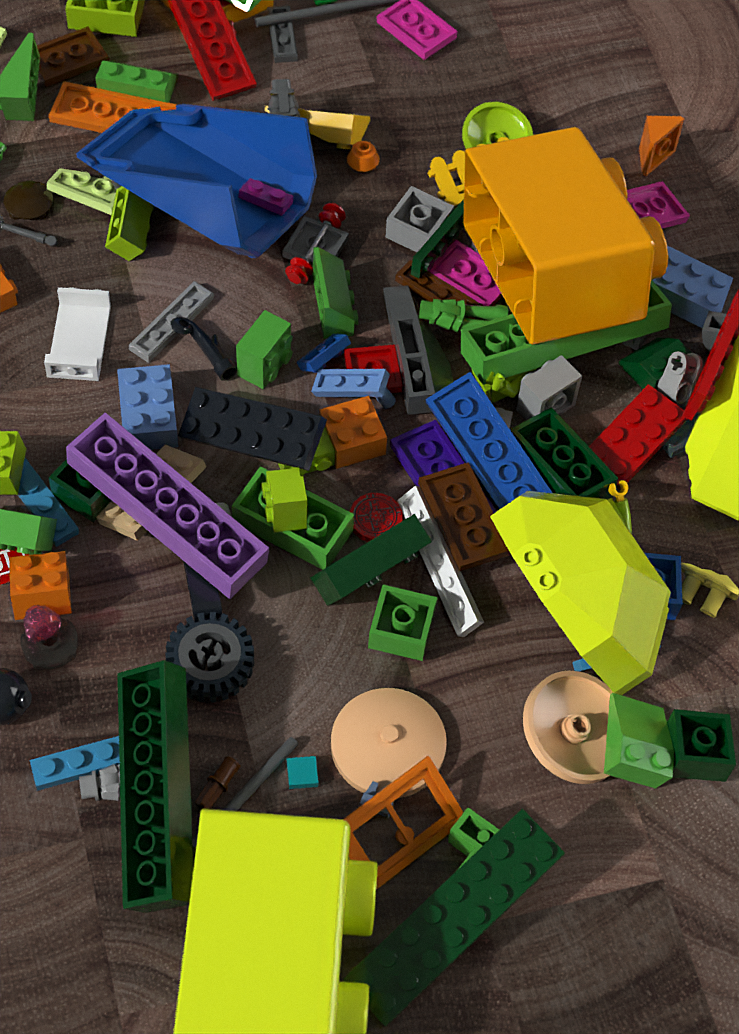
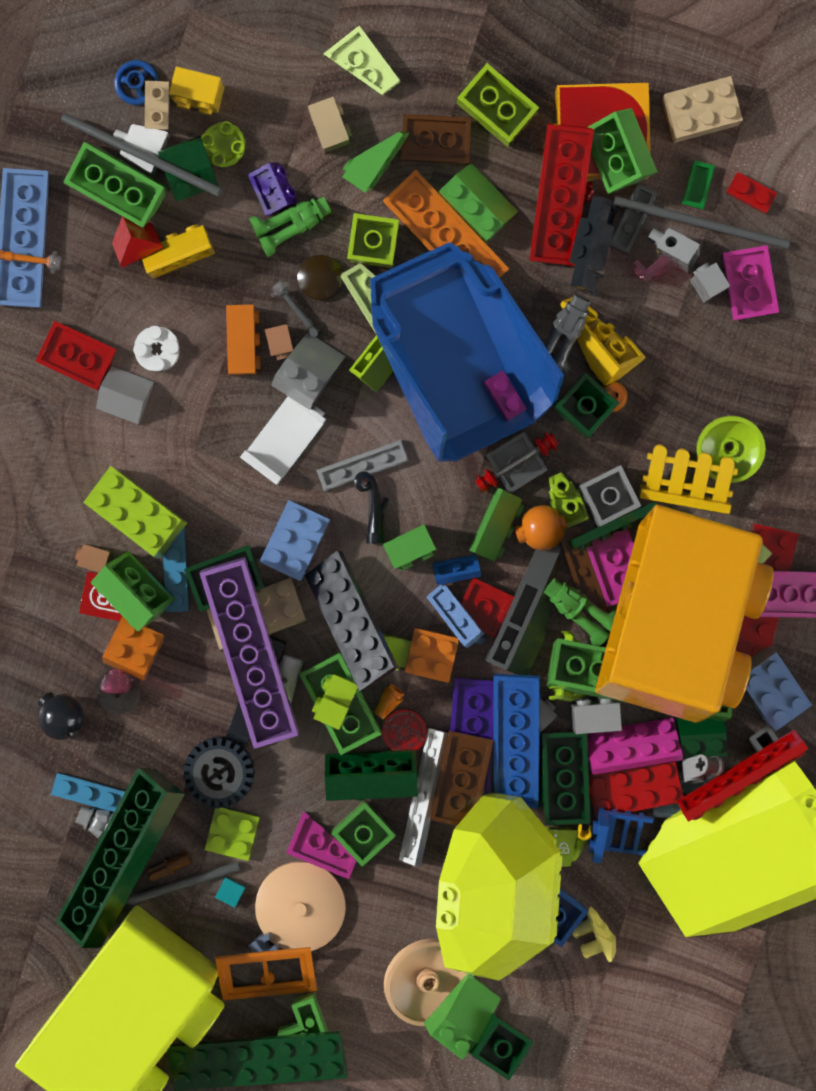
camera: 35 degrees right, 30 degrees up
(22, 261) = (279, 341): none -> nougat brick
(57, 142) = (373, 240): none -> lime brick
(64, 268) = (307, 370): none -> light grey slope
(258, 47) = (592, 245): none -> black bracket
(264, 712) = (232, 833): none -> lime plate
(323, 58) = (656, 269): none -> clear pink bracket
(335, 27) = (682, 254): none -> light grey torso
(340, 492) = (389, 700): none -> orange cone
(344, 168) = (585, 406): none -> dark green slope
(361, 672) = (319, 848): none -> dark pink wing
(378, 273) = (541, 528): none -> orange brick
(382, 33) = (709, 281): none -> light grey brick
(383, 250) = (567, 500): none -> lime connector
(606, 399) = (634, 746): none -> dark pink plate
(639, 494) = (603, 832): none -> blue plate

